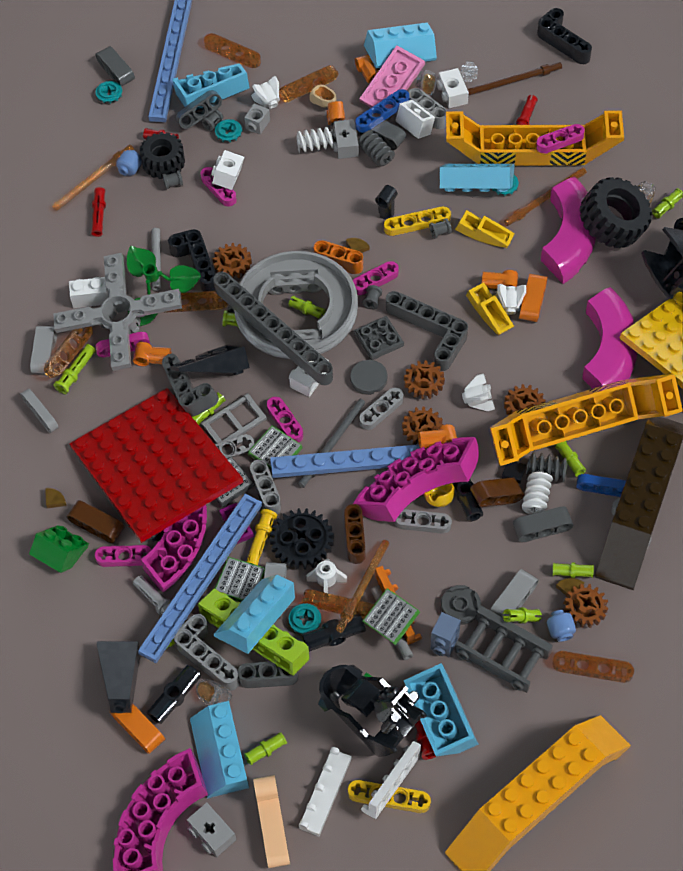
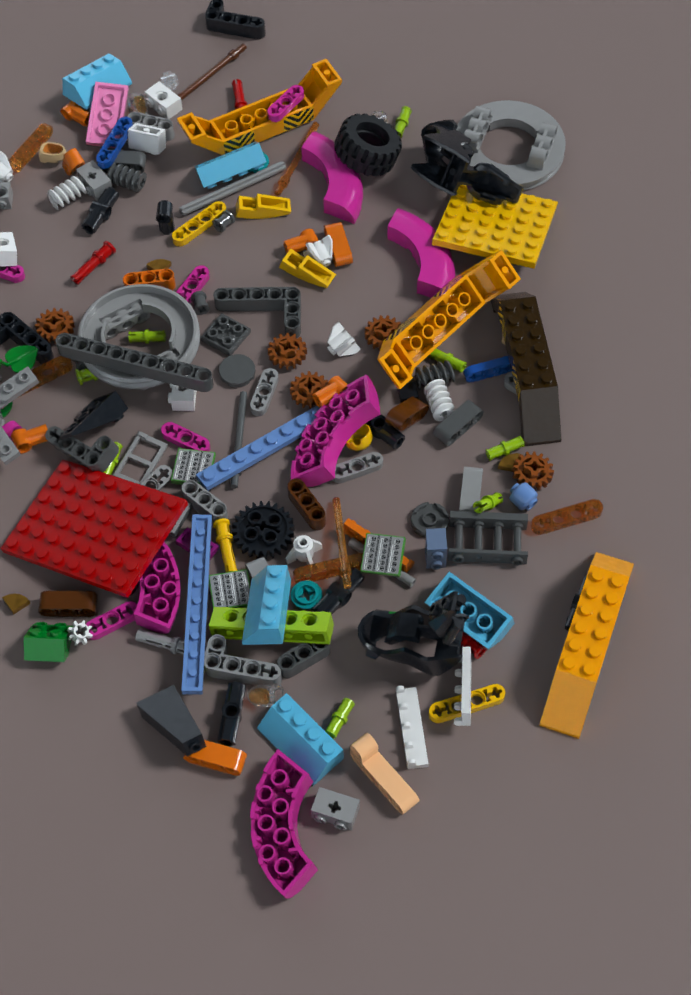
camera: 30 degrees left, 0 degrees up
(91, 549) = (80, 627): none -> white gear
(307, 213) = (98, 257): none -> red pin
(335, 169) = (100, 210): none -> black piece
(468, 200) = (232, 188): none -> light grey axle

